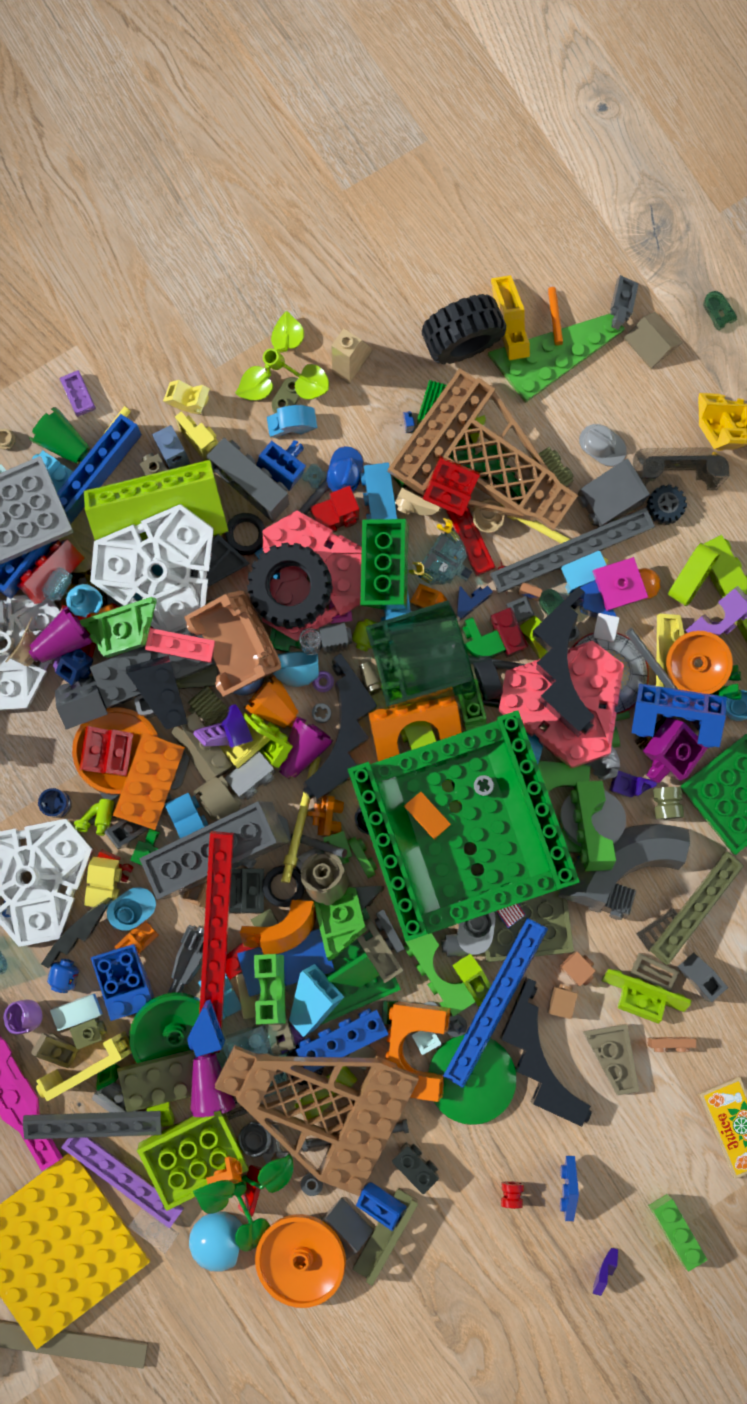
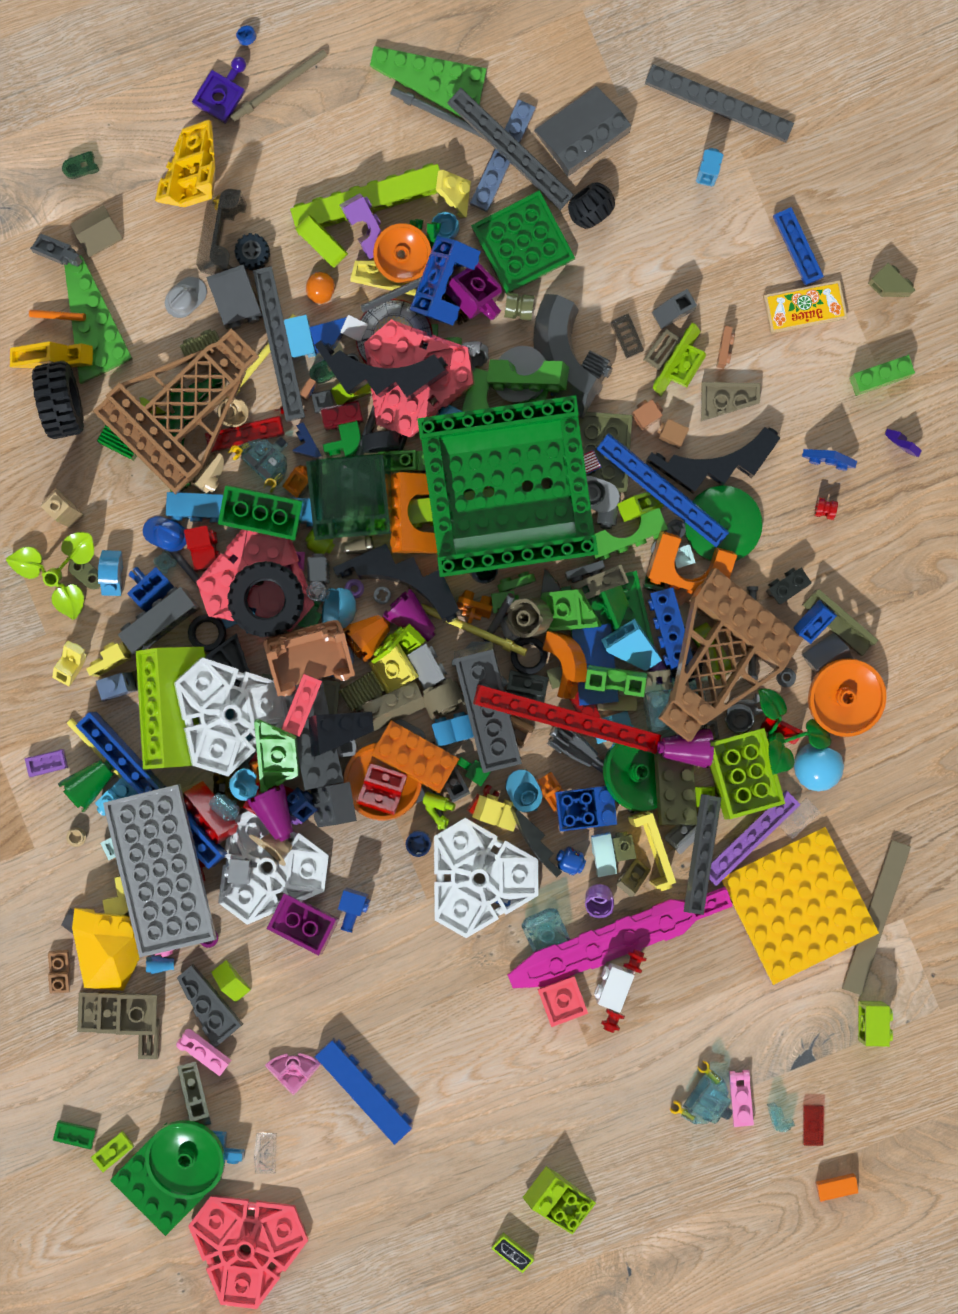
camera: 70 degrees left, 5 degrees up
(107, 1076) = (665, 836): green slope -> none
(151, 460) = (122, 705): dark tan brick -> none
(206, 1033) = (642, 742): blue slope -> none
(212, 735) = (385, 684): medium lavender slope -> none
(232, 1172) = (764, 739): orange bracket -> none
(236, 727) = (383, 670): dark purple slope -> none
(408, 421) = (130, 467): blue tile -> none
(427, 815) = (492, 516): orange slope -> none
(451, 486) = (202, 439): red slope -> none
(477, 787) = (475, 456): light grey bush -> none
(620, 584) = (318, 307): dark pink plate -> none
(630, 785) = (497, 336): dark purple slope -> none
(696, 908) = (614, 301): olive tile -> none

